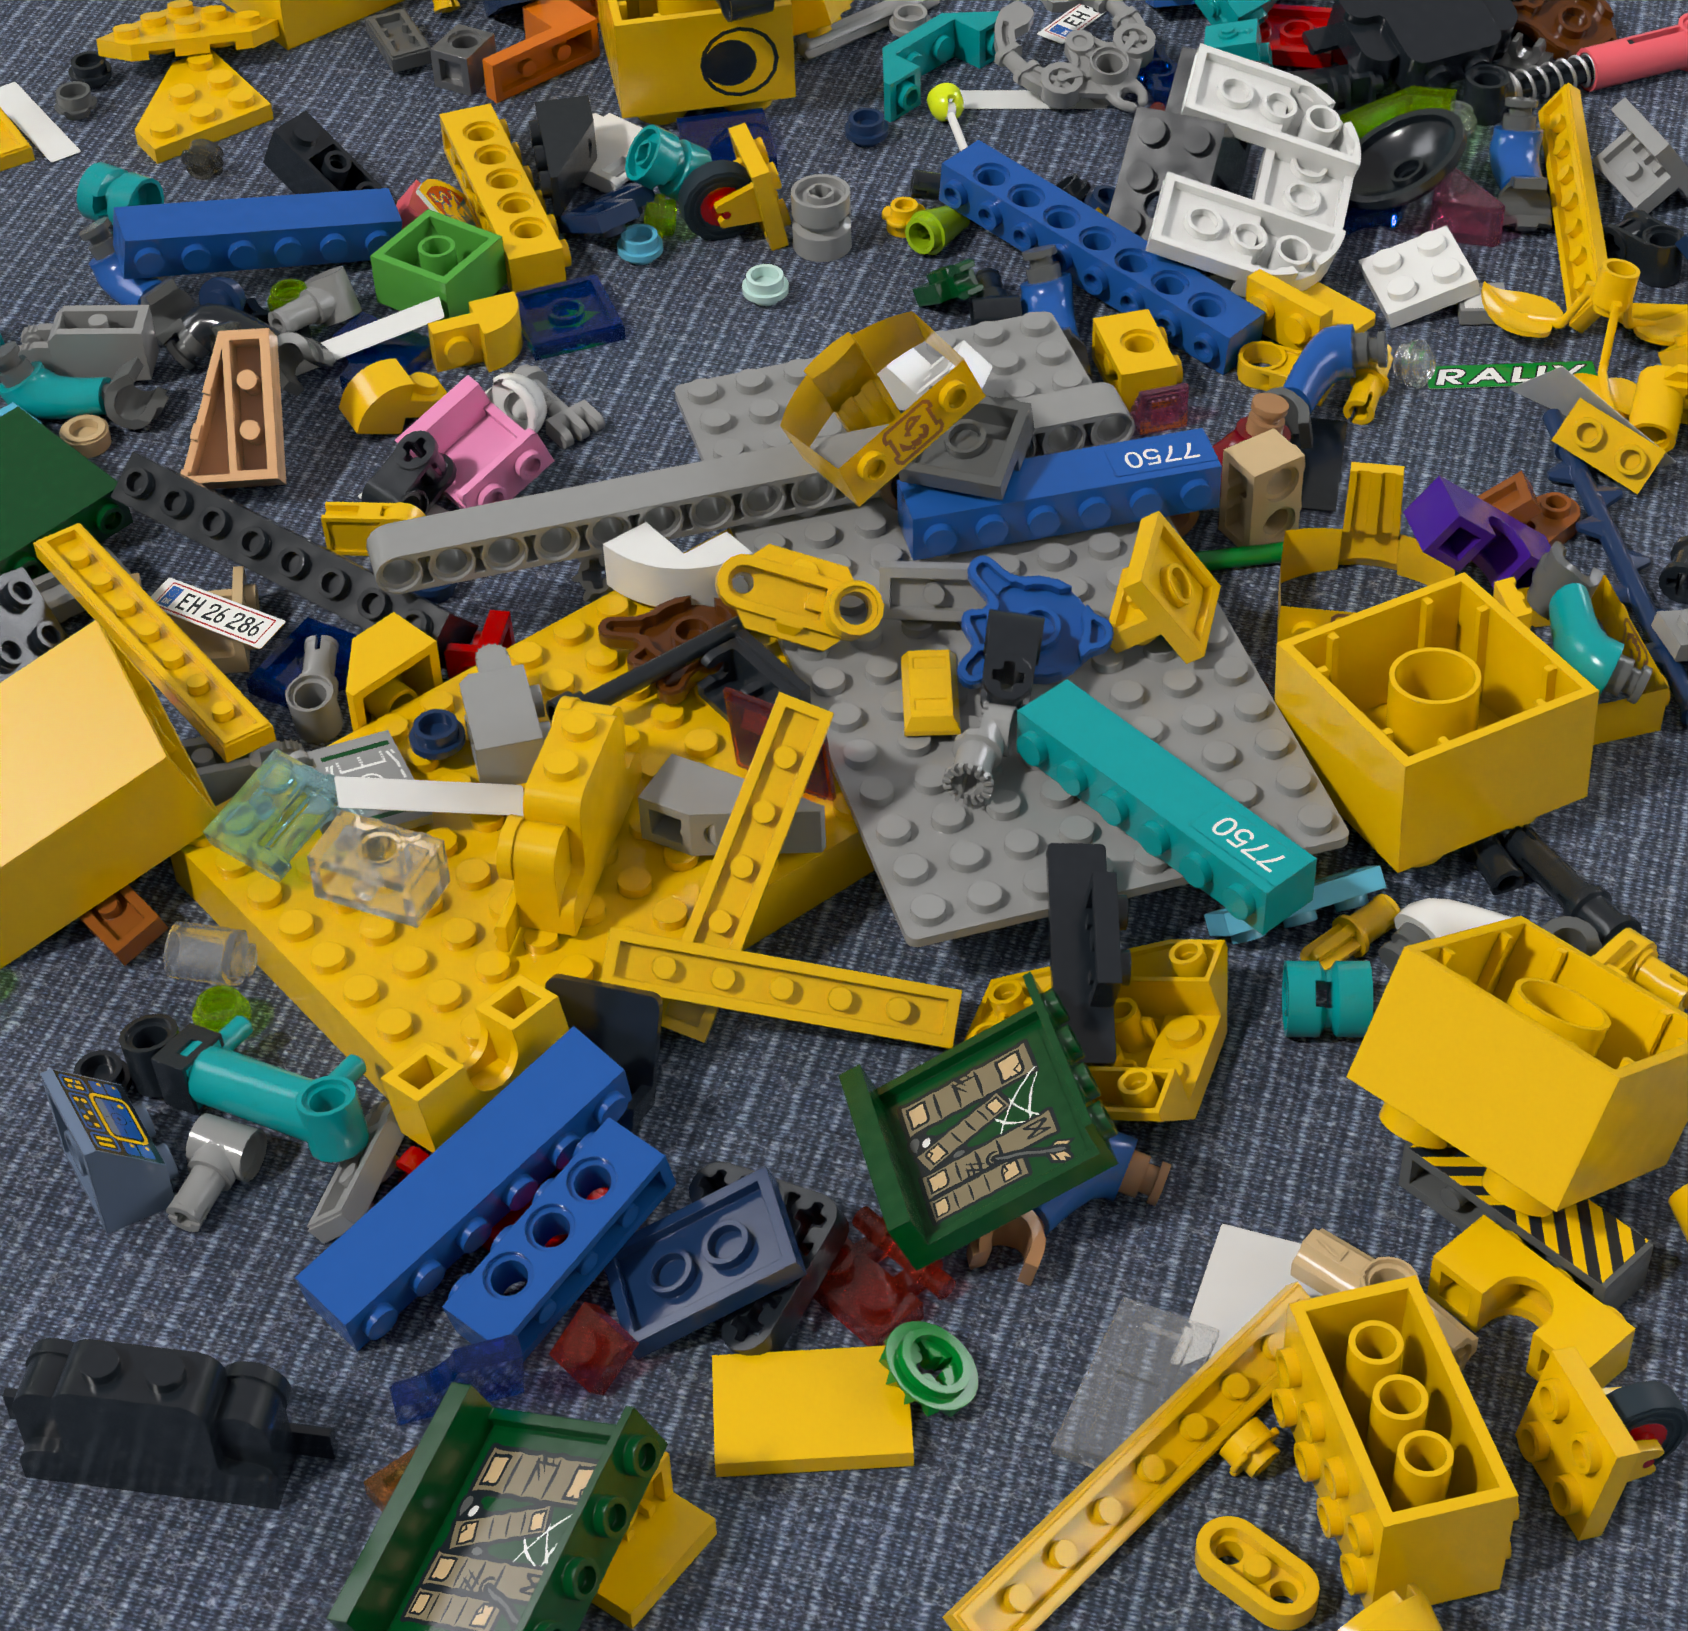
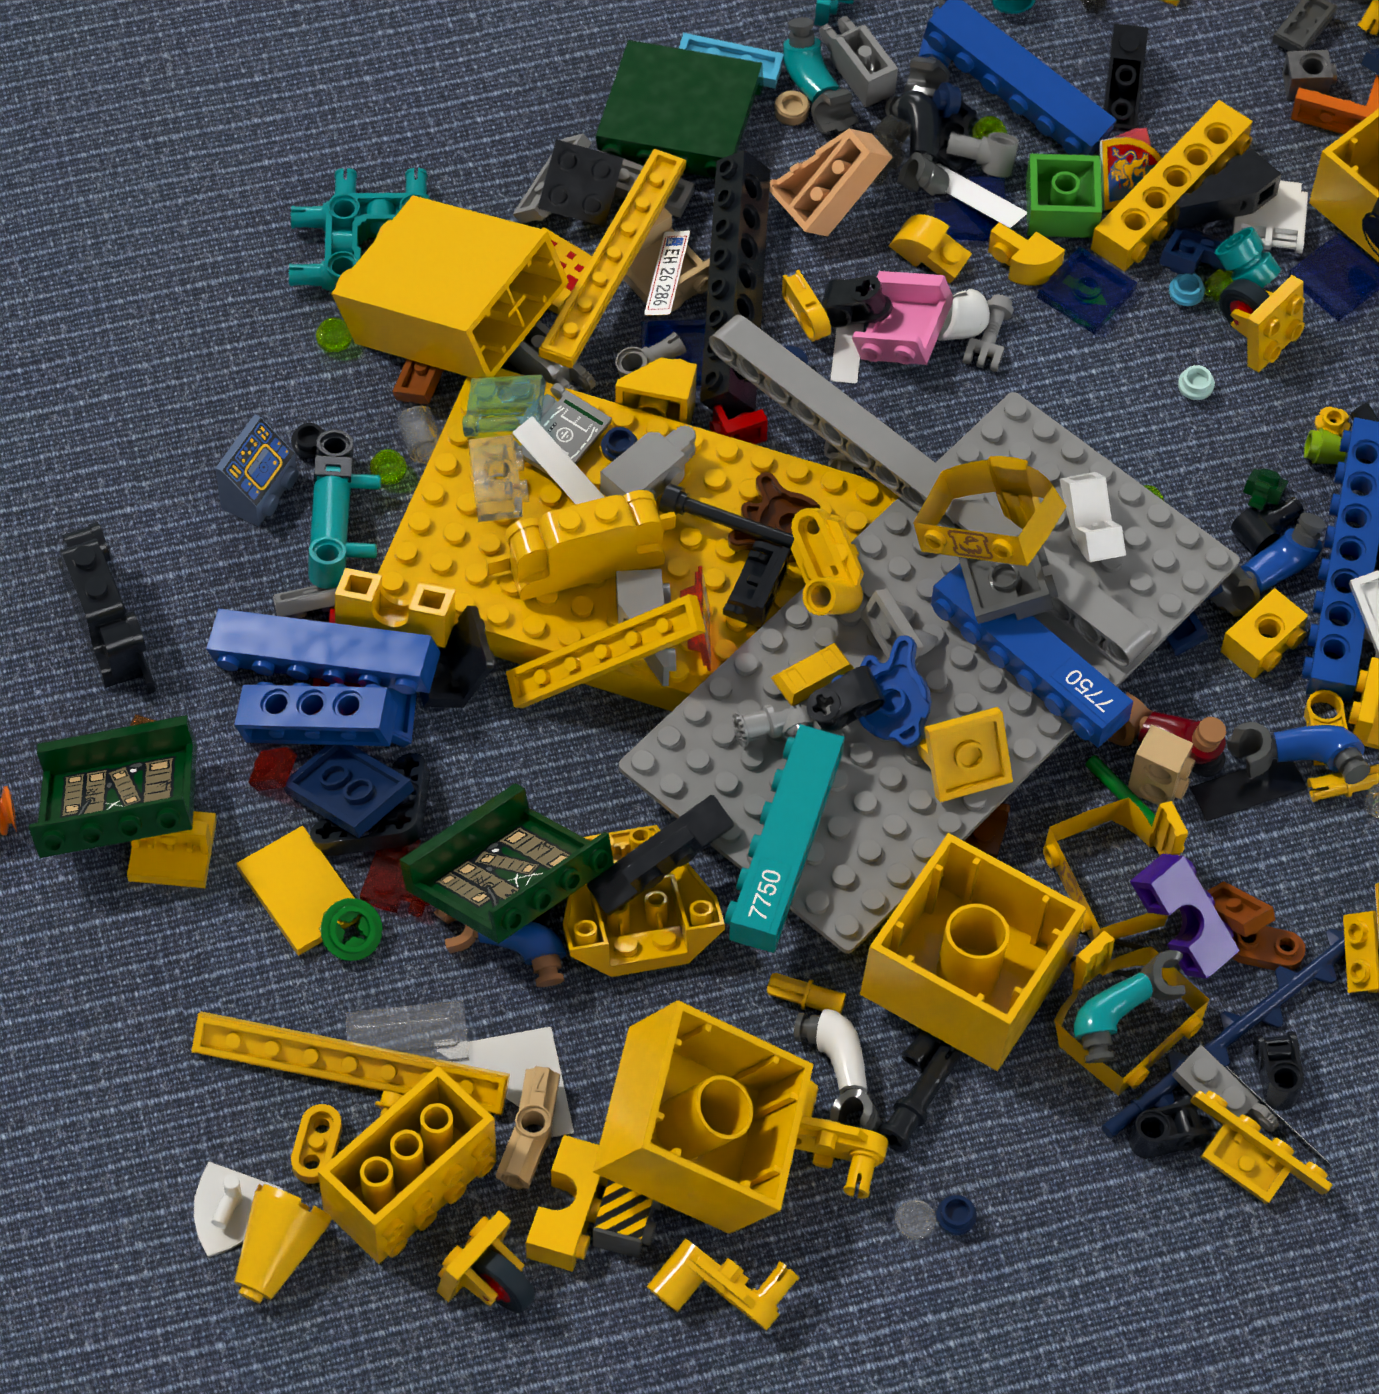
camera: 55 degrees right, 15 degrees up
(216, 1156) = (288, 528): light grey pin -> none
(489, 1366) = (209, 722): clear blue tile -> none
(653, 570) = (826, 470): white brick -> none
(782, 988) = (554, 722): yellow plate -> none
(821, 217) = (1279, 377): light grey wheel -> none
(1161, 408) = (1227, 674): clear pink slope -> none
(1343, 889) = (820, 957): medium azure plate -> none
(1348, 998) = (735, 998): teal wheel -> none

